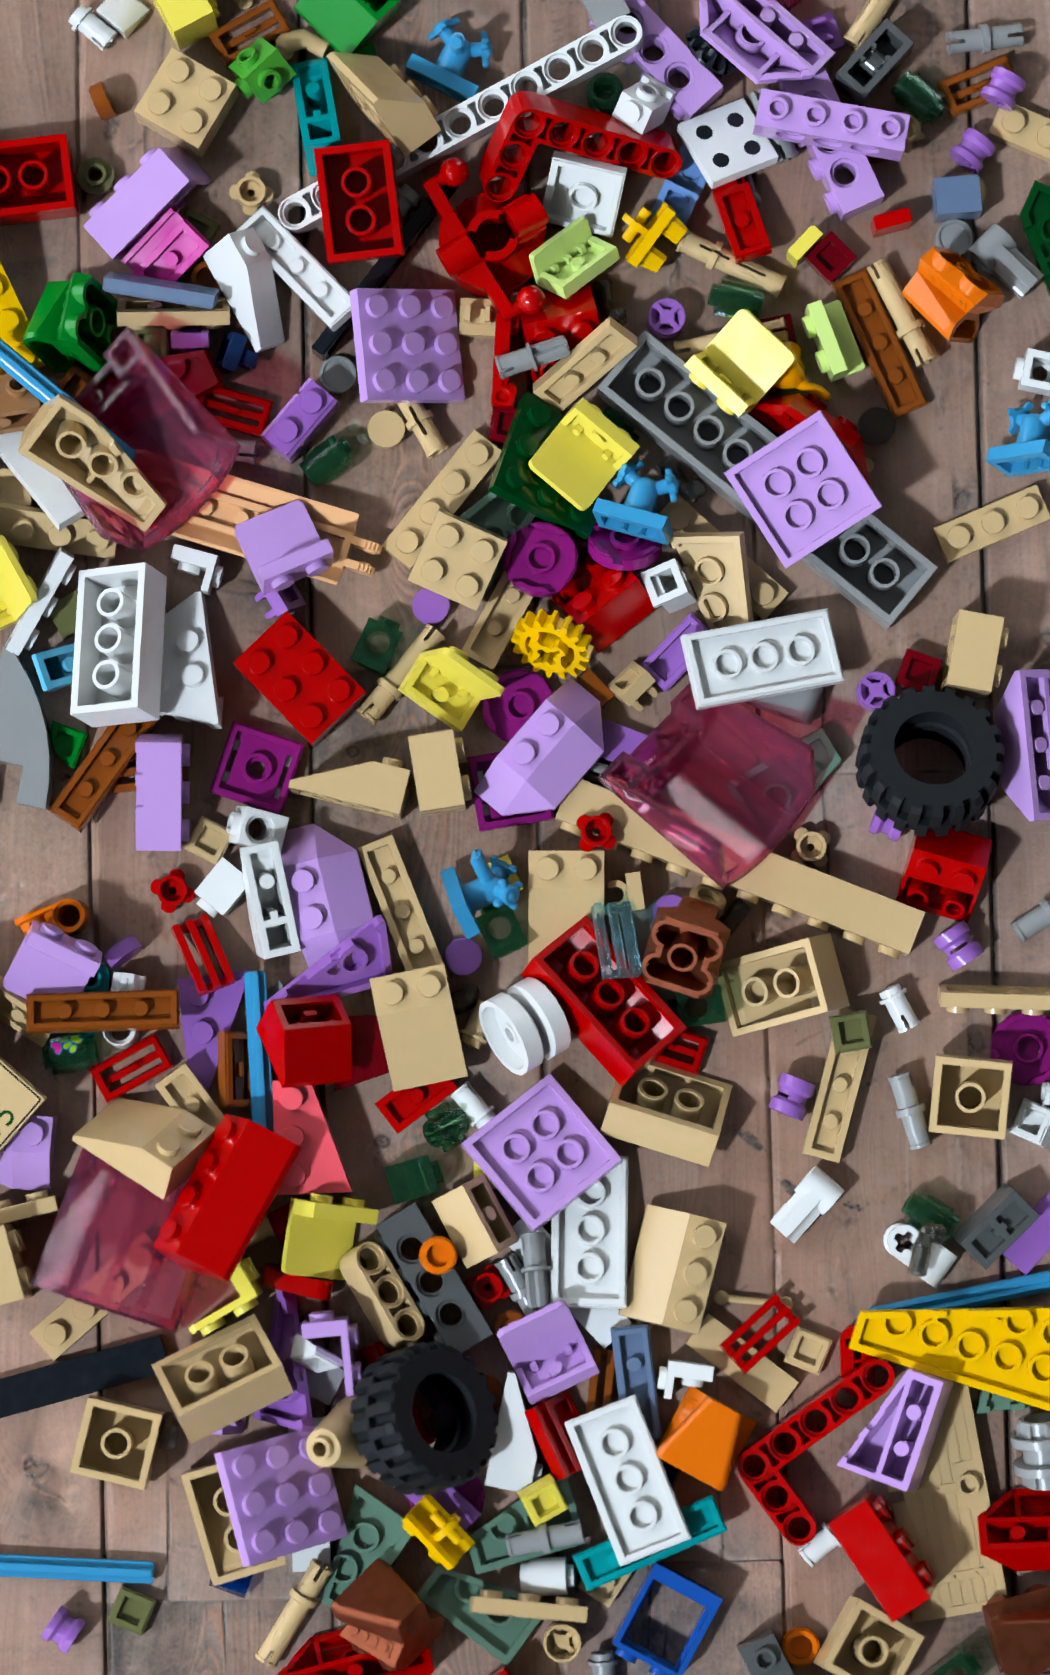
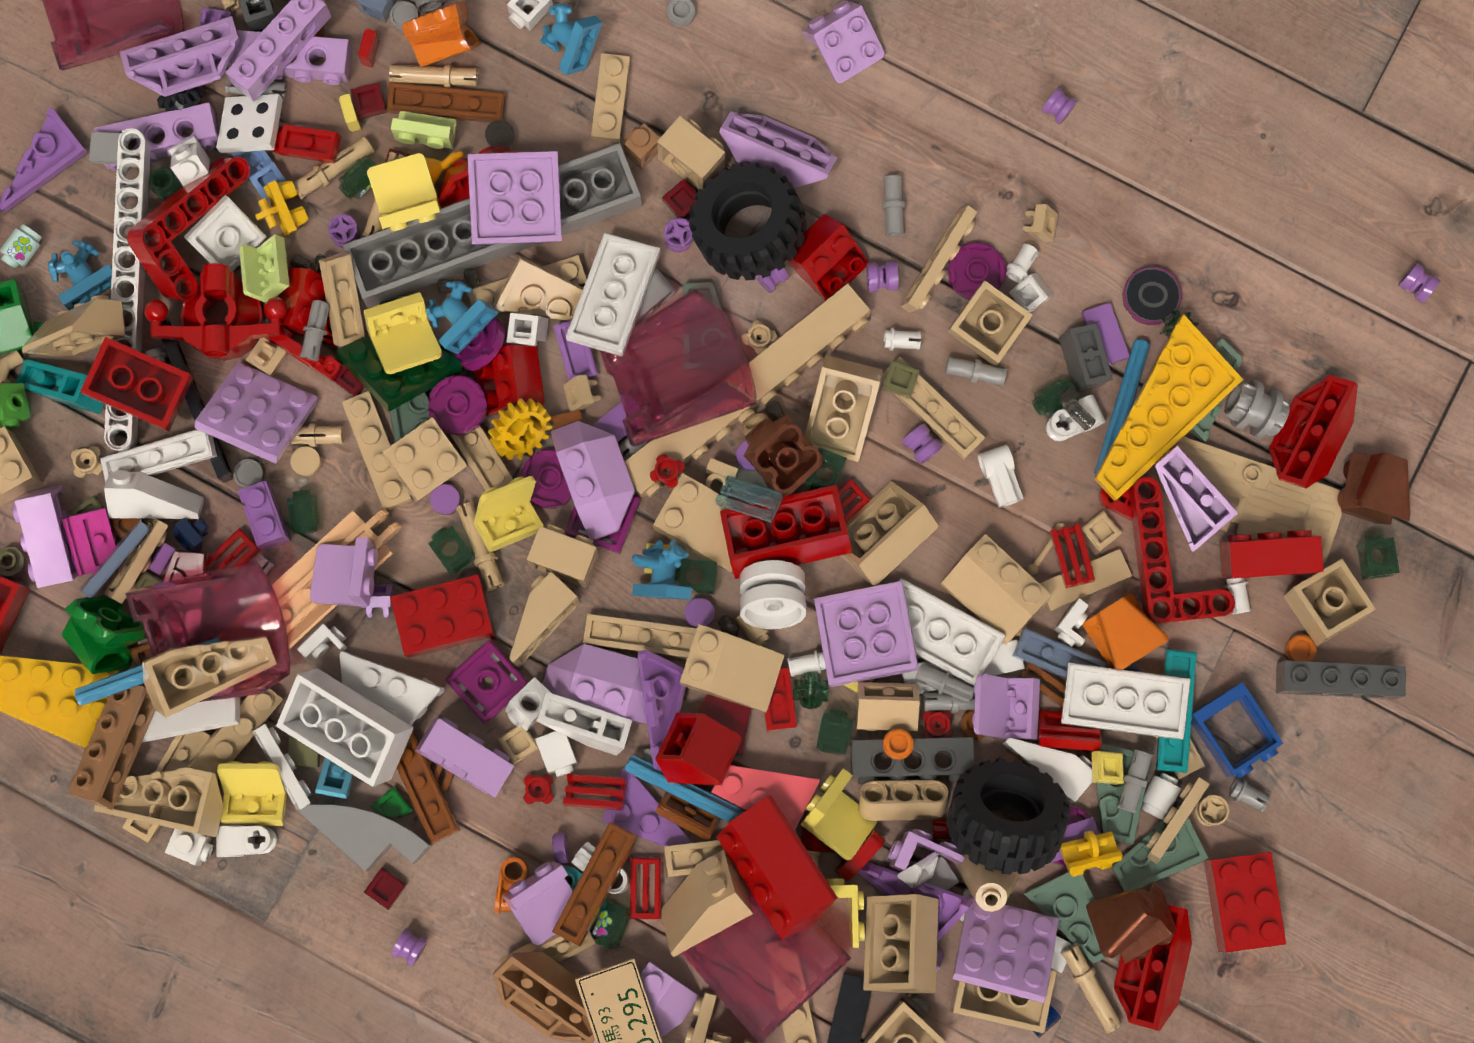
camera: 65 degrees left, 5 degrees down
(954, 590) = (641, 145): none -> medium nougat brick

